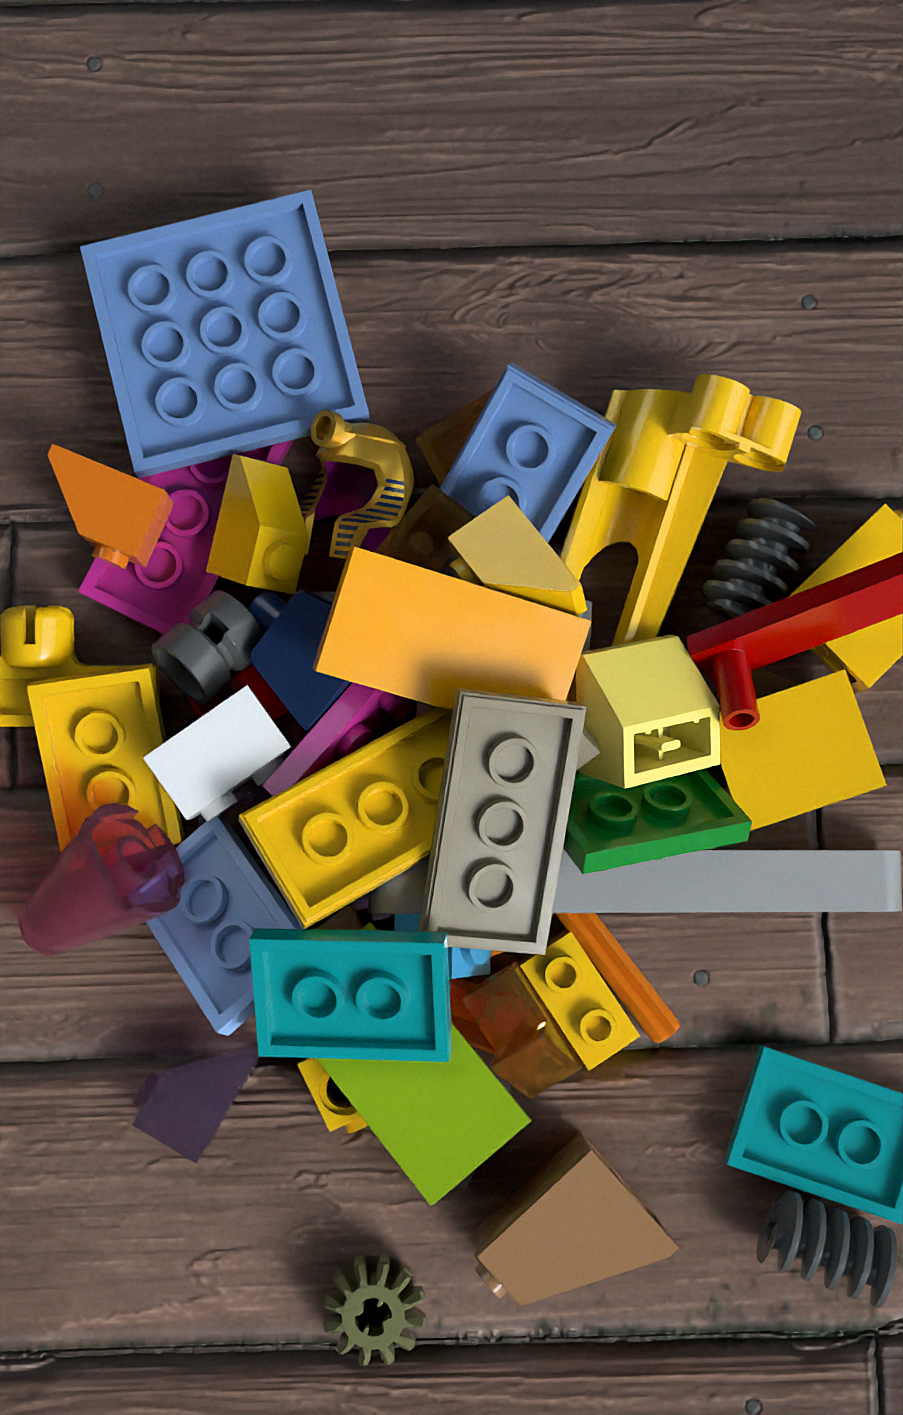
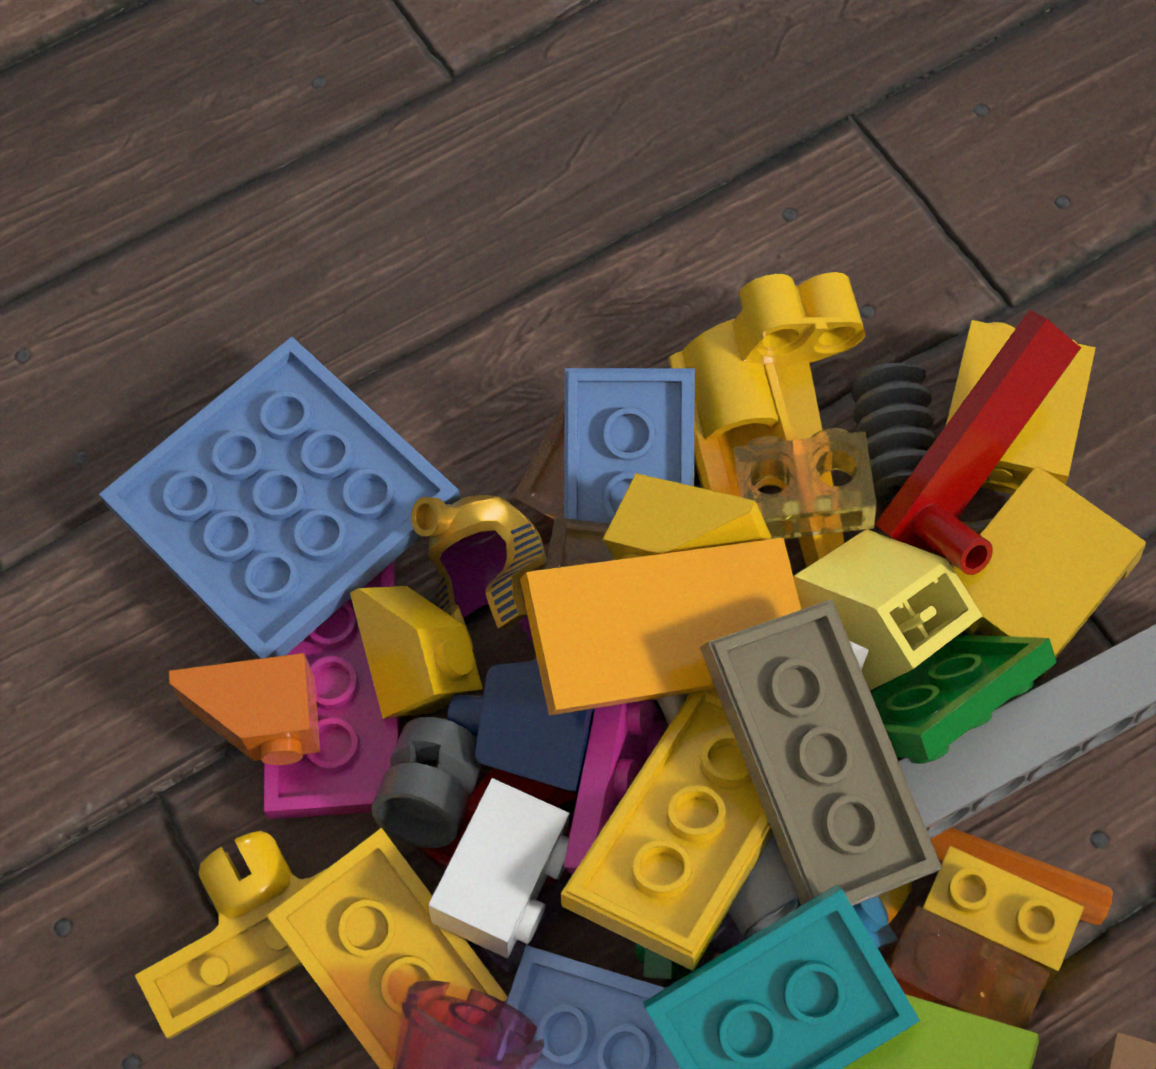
camera: 20 degrees left, 20 degrees down
(638, 590) = (807, 502): none -> clear yellow brick

